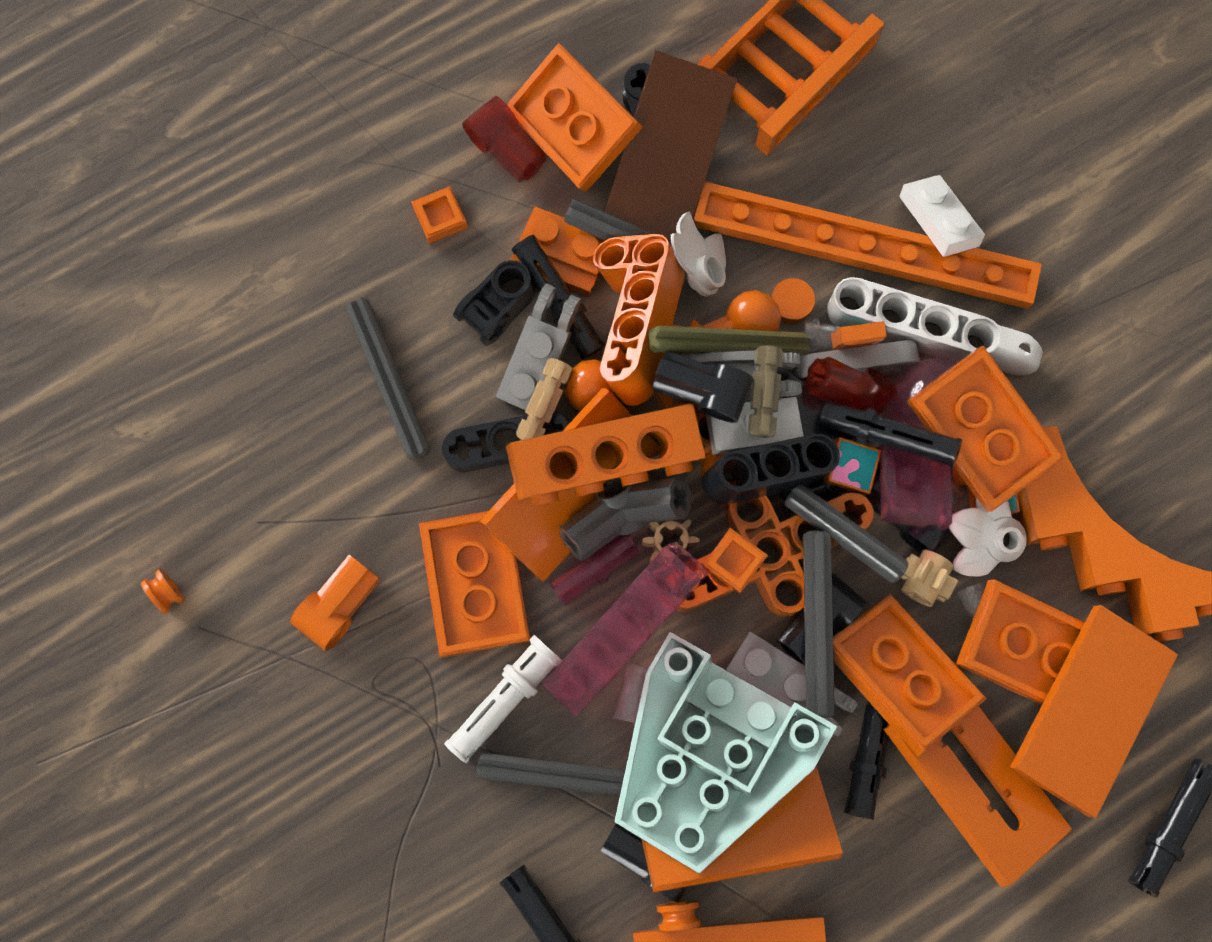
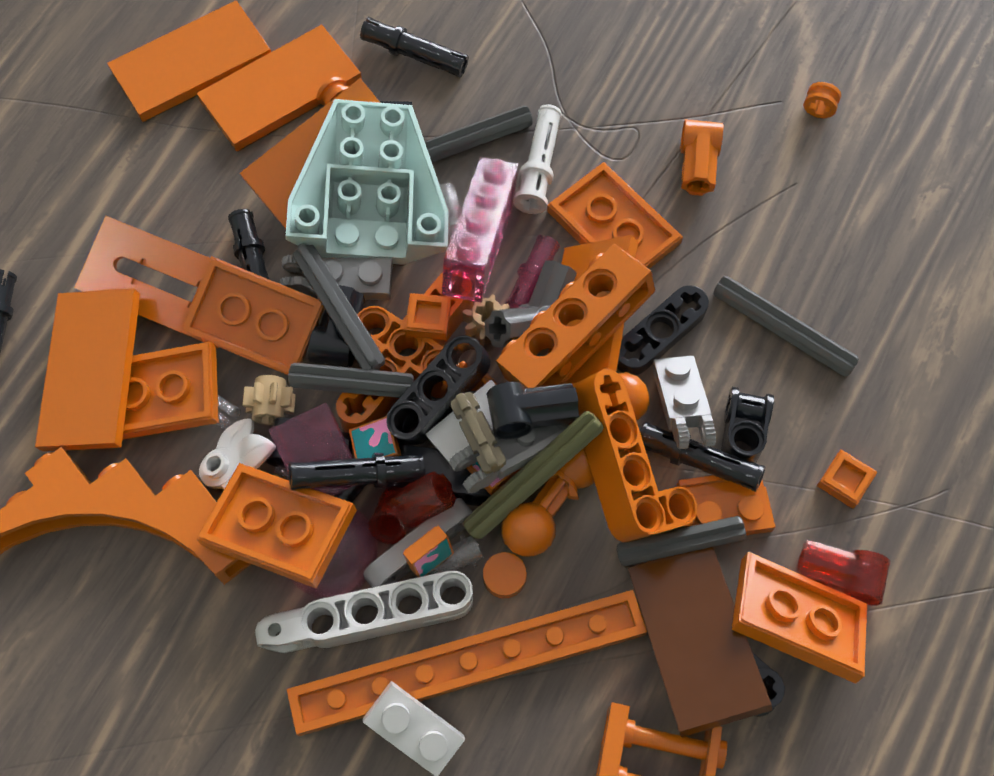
camera: 150 degrees right, 10 degrees down
(544, 399) = (652, 359): tan axle -> none
(699, 257) = (610, 560): white plate -> none

